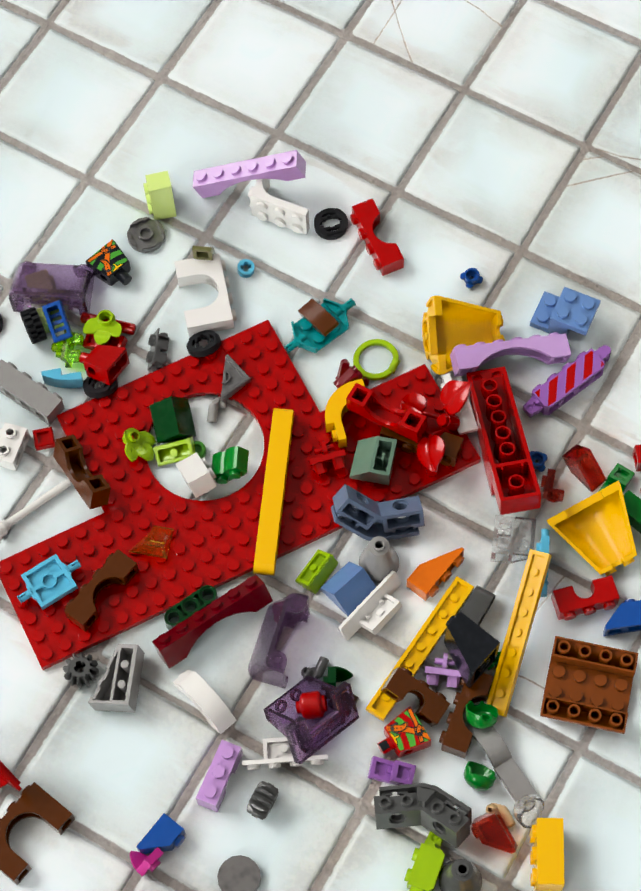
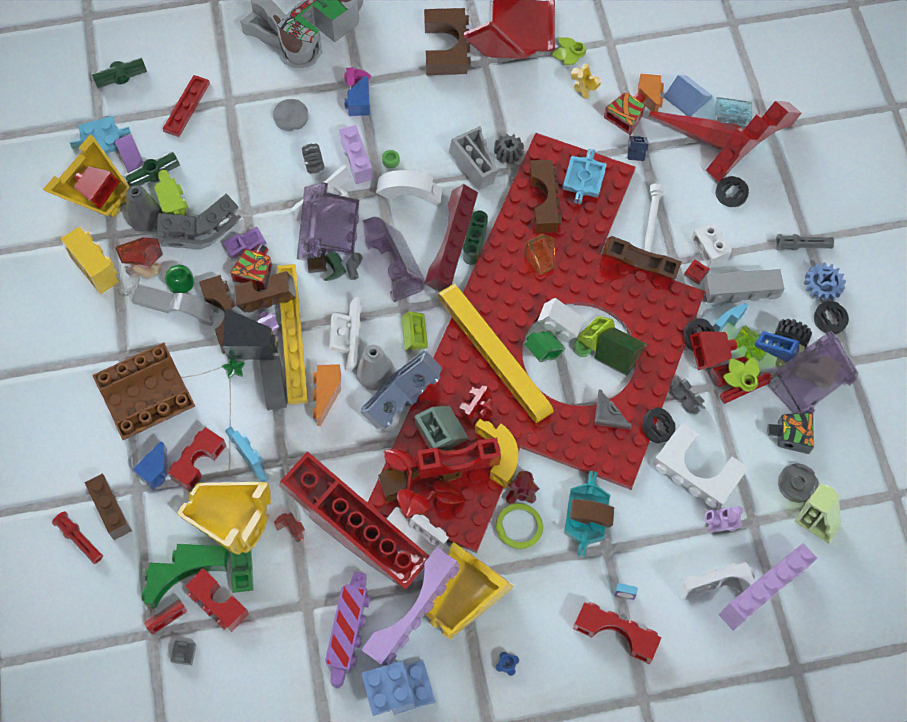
camera: 135 degrees right, 0 degrees up
(139, 445) = (621, 311): lime plate -> none
(190, 751) = (390, 159): none -> bright green tile
(203, 253) = (734, 493): olive slope -> none
(213, 409) = (600, 383): light grey arm -> none
(226, 245) = (724, 519): none -> lavender hips
(245, 262) = (699, 520): medium azure bush -> none
(312, 705) = (332, 233): red head -> none
(328, 232) = (667, 631): black piece -> none
(344, 256) = (625, 591): none -> tile
(348, 587) = (381, 331): medium blue slope -> none
(481, 715) = (207, 313): green hair -> none
(512, 538) = (282, 454): clear slope -> none
(518, 631) = (224, 385): yellow plate -> none
(541, 457) = (314, 539): blue plate -> none
(584, 467) = (277, 563): clear red slope -> none

